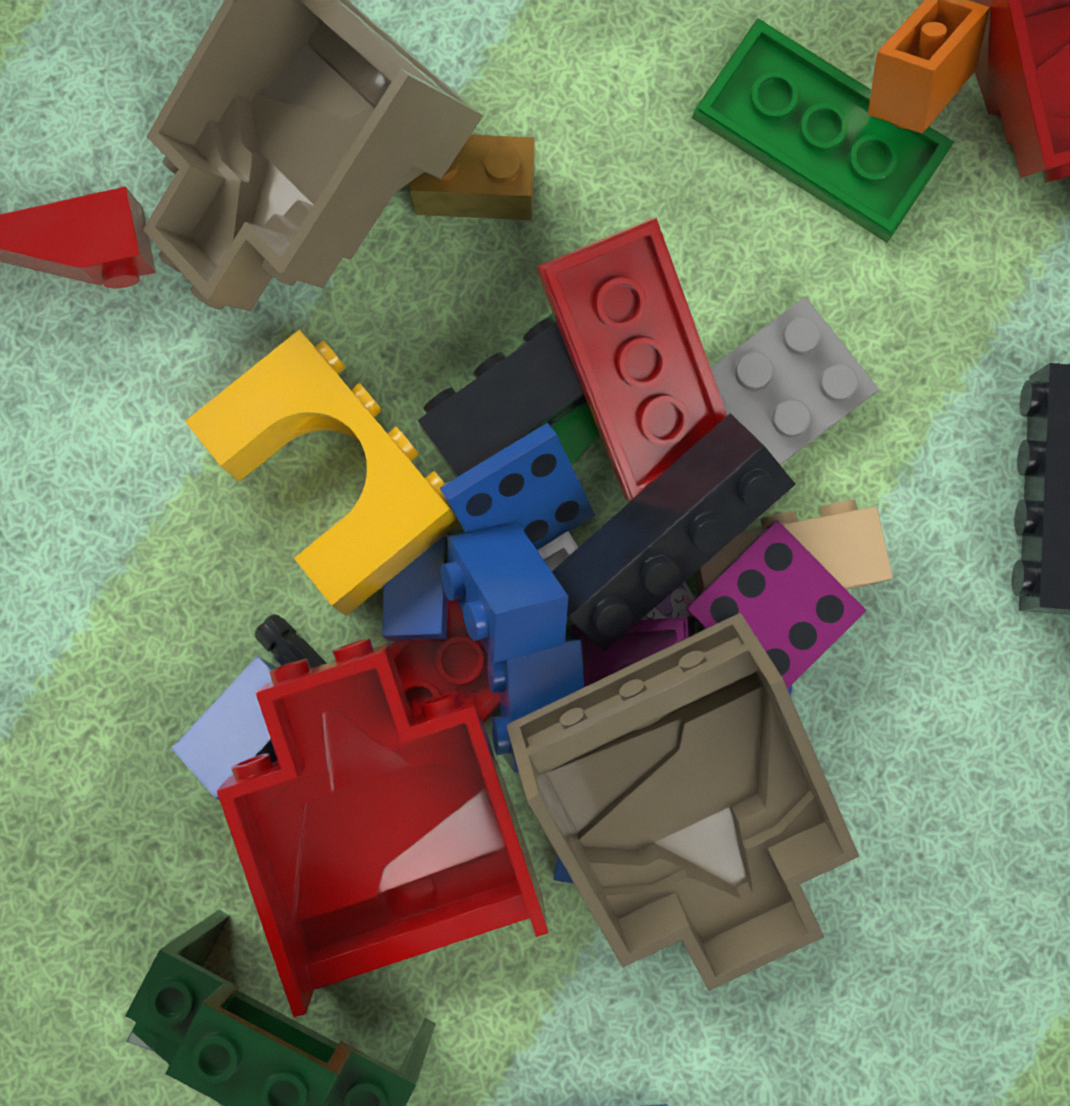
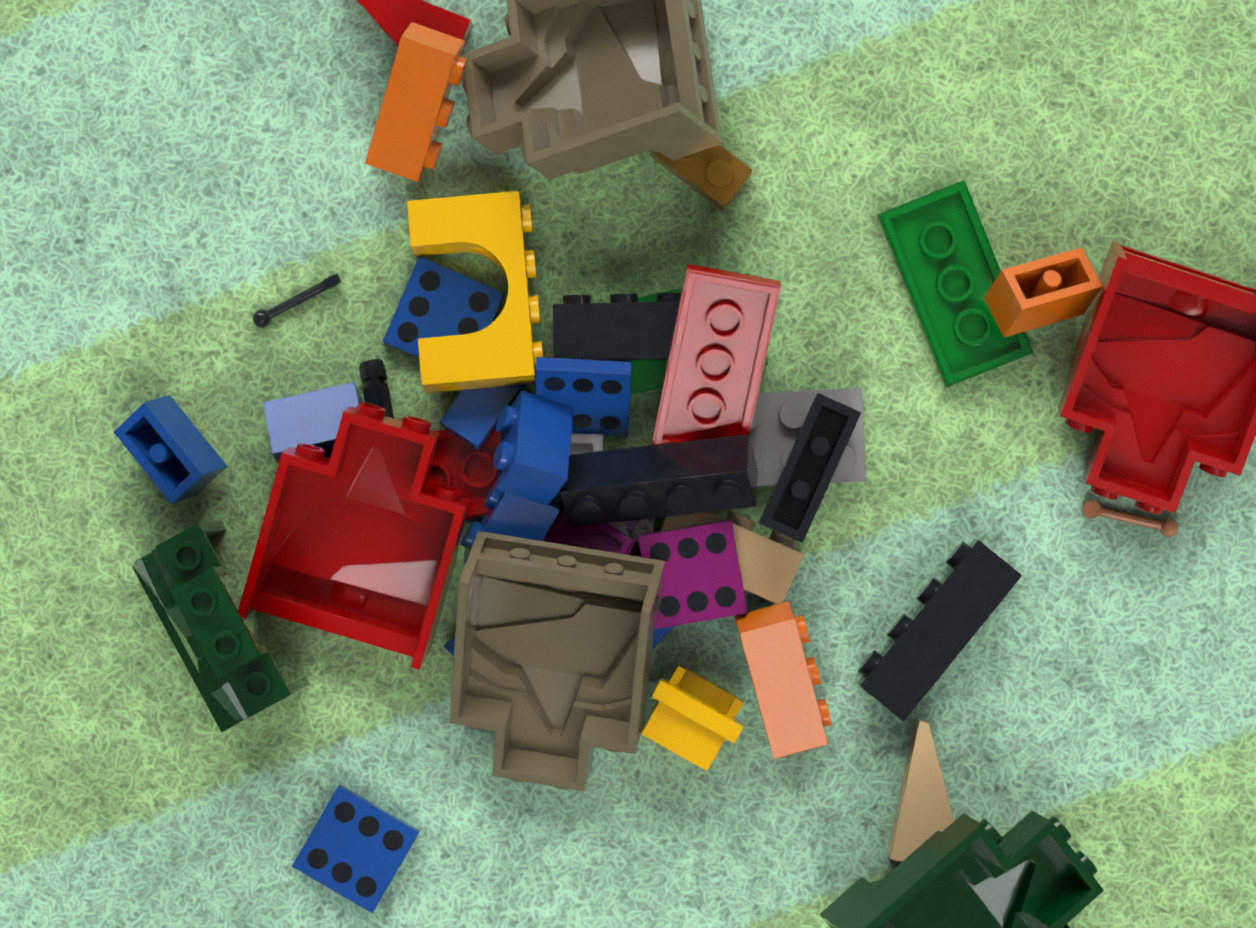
camera: 30 degrees right, 5 degrees up
(101, 872) = (170, 449): none -> blue brick
(118, 657) = (262, 317): none -> black hinge
(122, 308) = (416, 102): none -> orange brick
(294, 509) = (439, 305): none -> blue tile
(821, 404) = (809, 467): none -> black brick
(887, 769) = (692, 717): none -> yellow plate
(952, 657) = (784, 679): none -> orange brick

